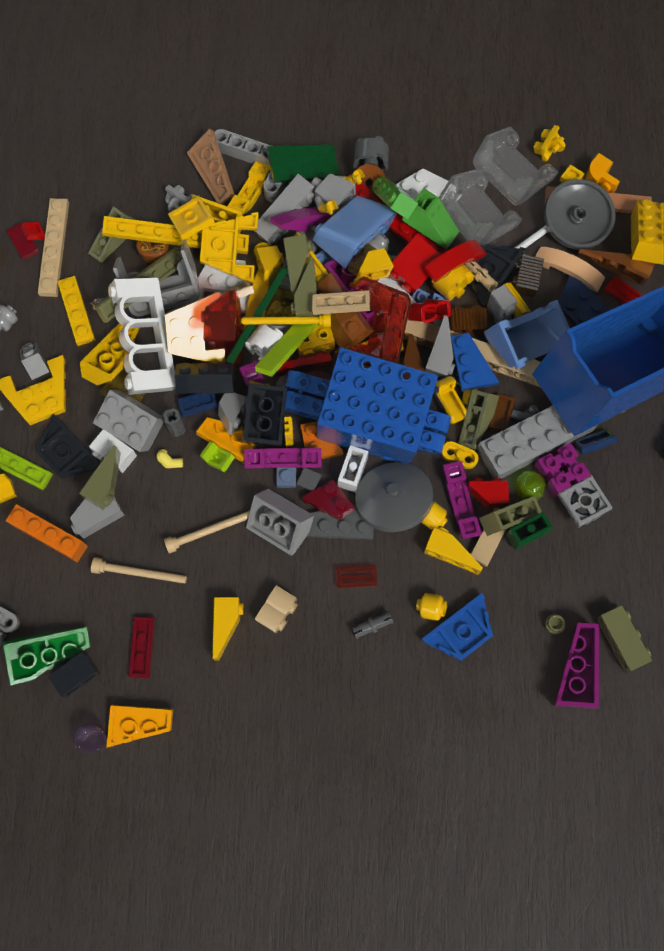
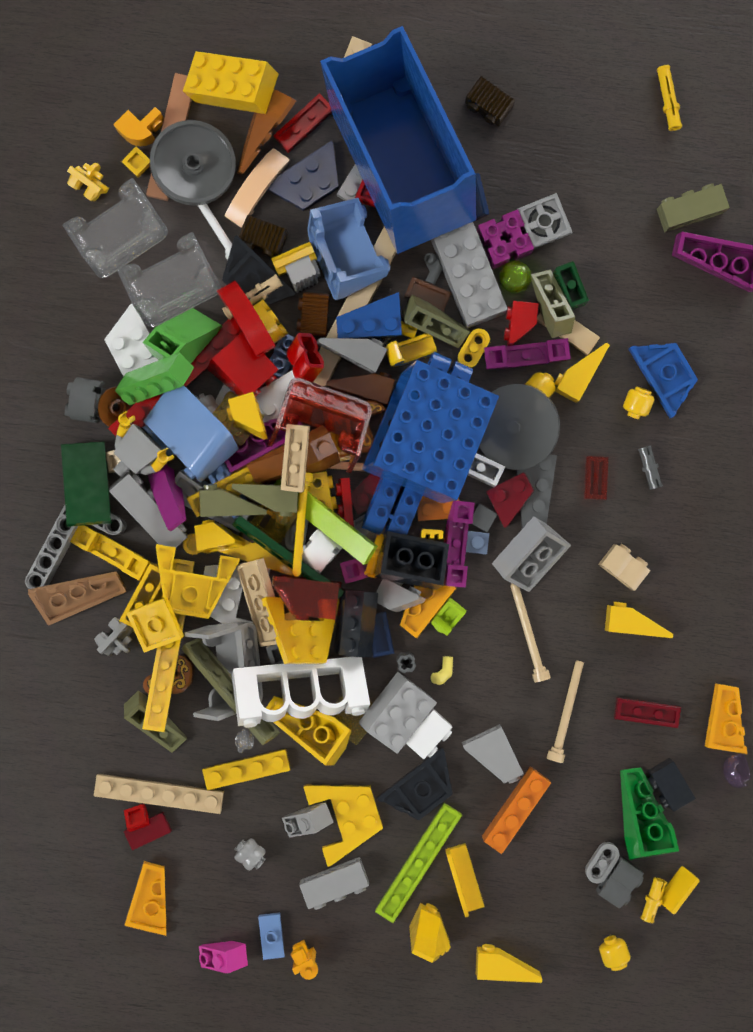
camera: 85 degrees left, 15 degrees up
(102, 484) = (473, 744): olive slope -> none
(555, 624) = (668, 276): olive plate -> none

